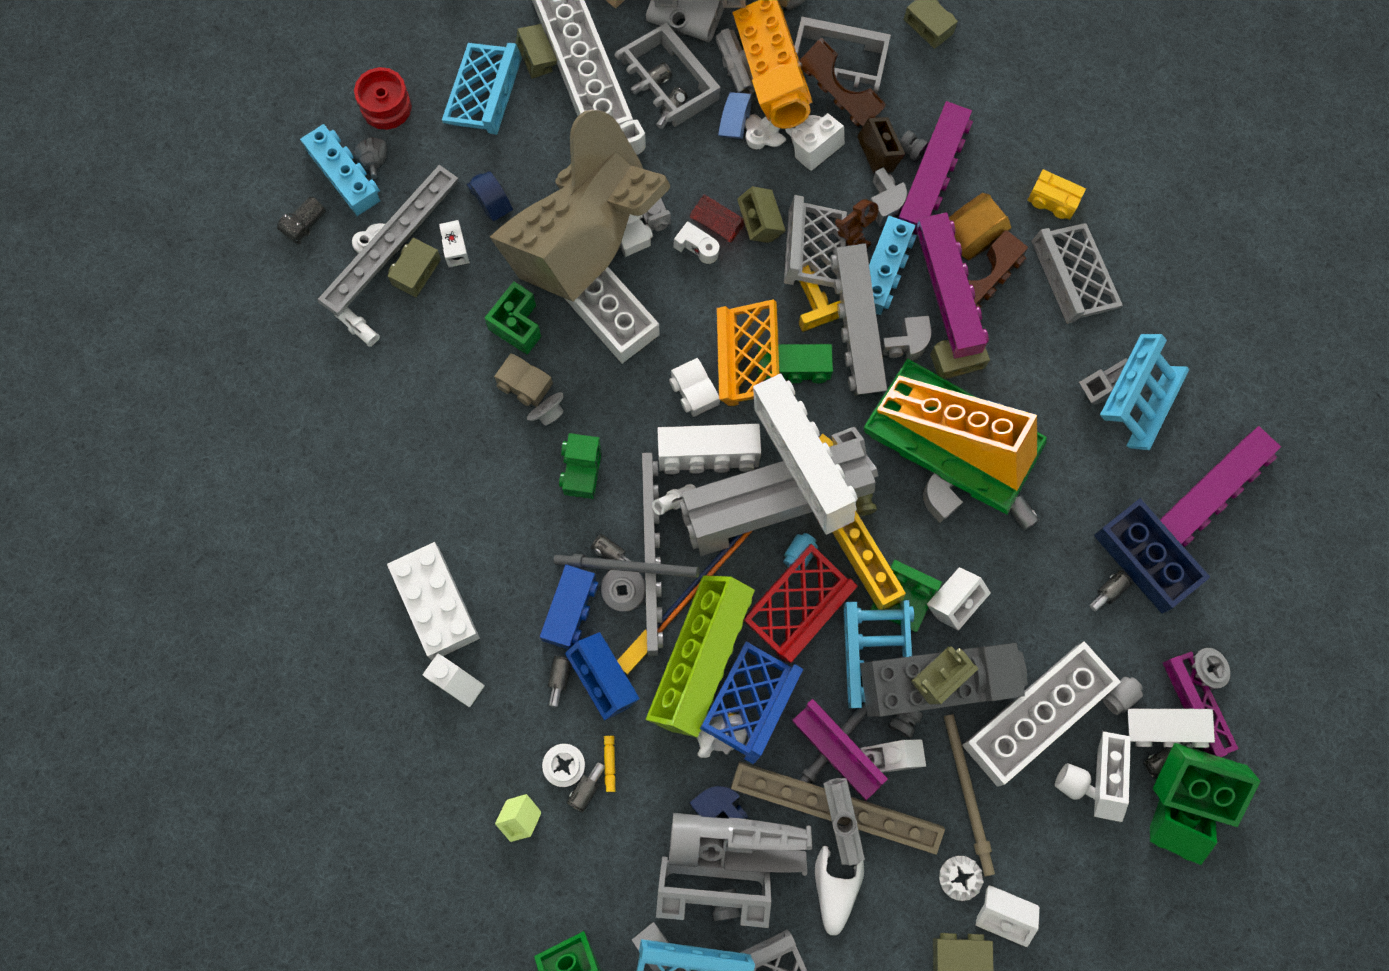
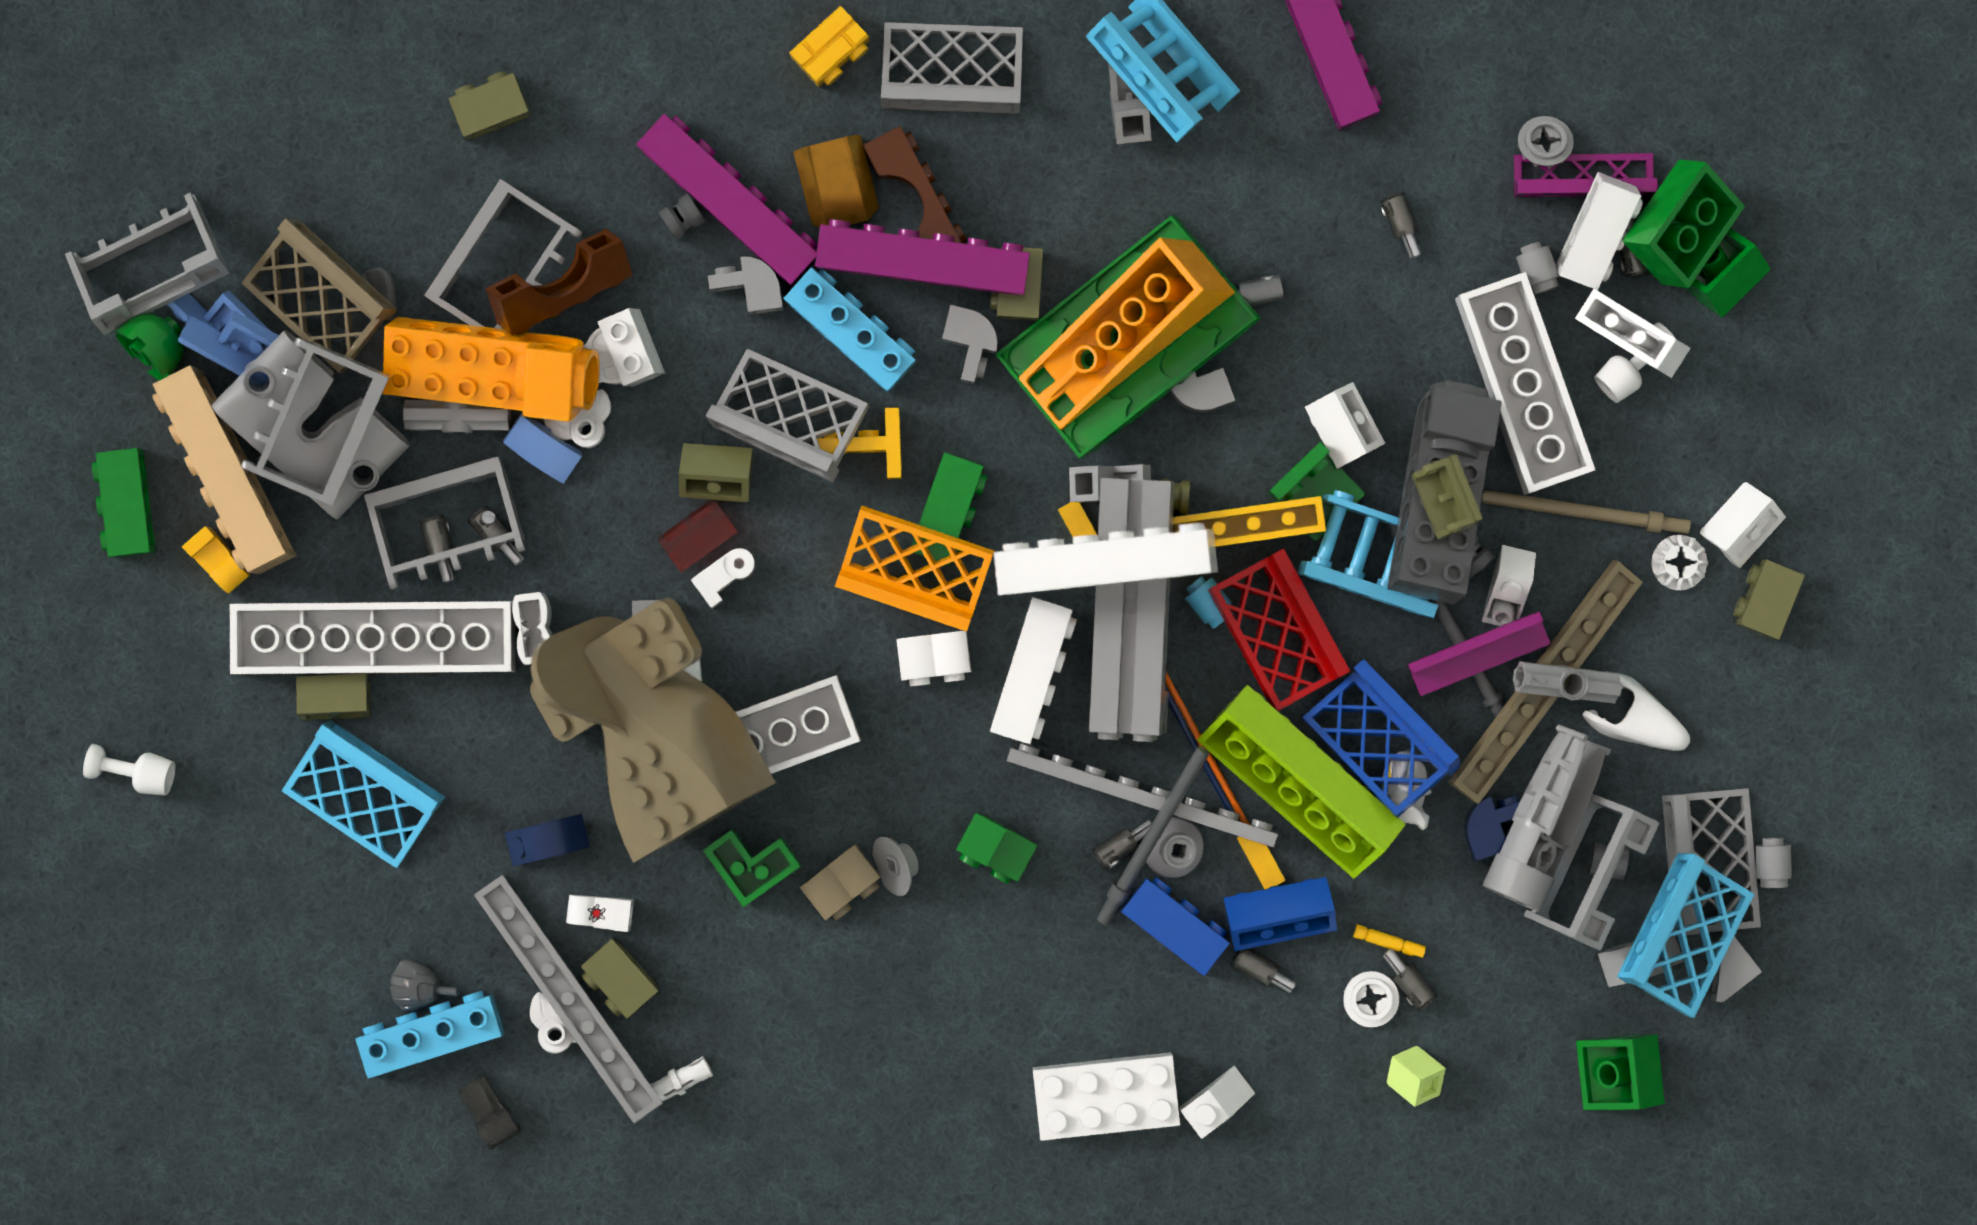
camera: 65 degrees left, 15 degrees up
(382, 98) = (360, 936): red wheel -> none
(670, 500) = (1082, 740): white pin -> none
(851, 225) = (782, 357): reddish brown piece -> none
(859, 320) = (927, 403): light grey brick -> none
(880, 144) = (669, 263): dark brown brick -> none
(1151, 556) = (1379, 154): dark blue brick -> none

